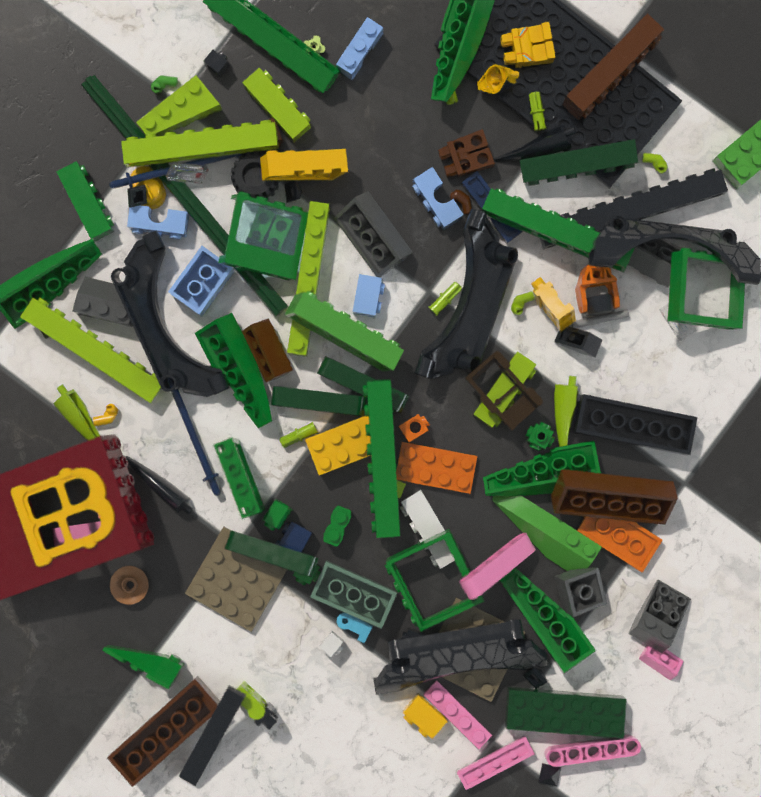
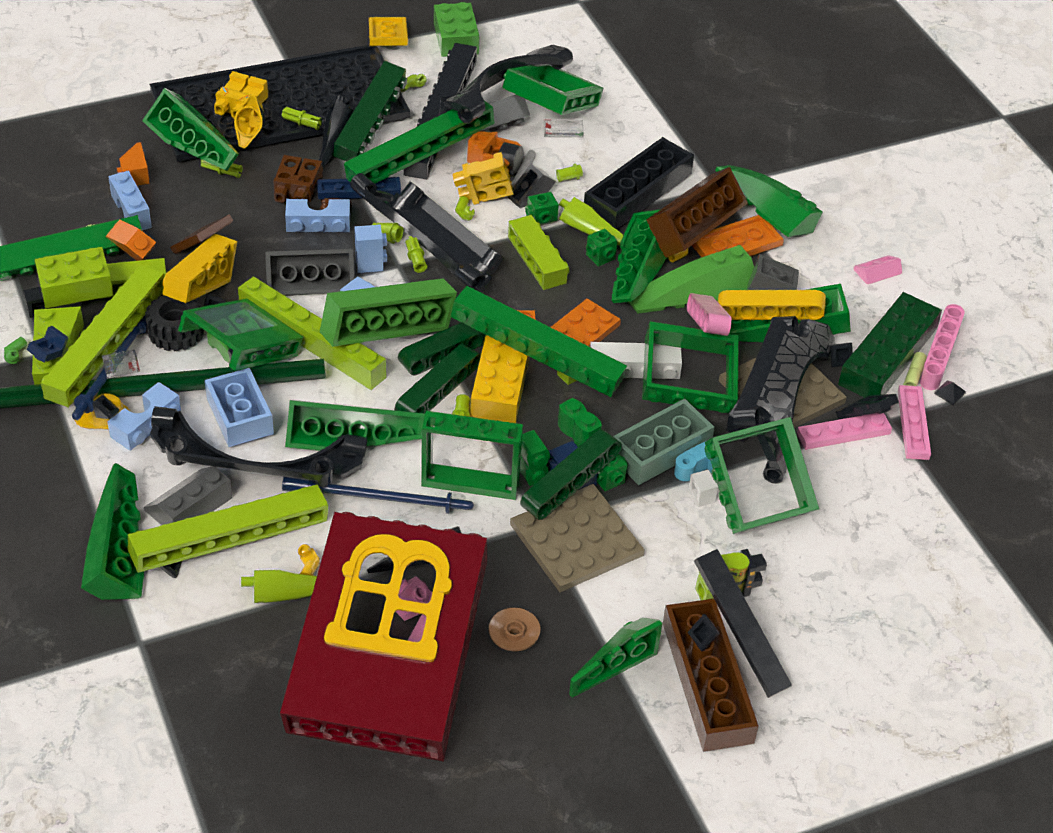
camera: 65 degrees left, 40 degrees down
(85, 201) = (64, 463): green brick -> none
(156, 119) = (49, 346): none -> dark blue bracket
(179, 719) = (703, 632): none -> black slope
(238, 80) = (73, 277): none -> lime brick
(267, 350) = (354, 391): reddish brown brick -> none
(308, 88) = (131, 240): none -> orange slope
(336, 708) = (794, 462): none -> green window
(349, 133) = (202, 234): none -> reddish brown tile
(402, 20) = (135, 163): none -> orange slope
(417, 266) = (369, 248): none -> light blue brick
(424, 716) = (830, 450): yellow brick -> none
(455, 262) = (393, 231): none -> lime cone
(485, 724) = (869, 404): none -> black wing
(521, 408) = (559, 224): dark brown piece -> none
(540, 607) = (772, 303): none -> yellow beam
(551, 740) = (915, 369): none -> yellowish green piece
(561, 365) = (542, 207): none -> green brick
(612, 67) = (311, 55): reddish brown brick -> none
(619, 359) = (569, 173): none -> lime pin
(660, 616) = (837, 248): dark grey slope -> none
(684, 540) = (777, 202): none -> green wedge
(708, 99) = (388, 31): none -> yellow tile

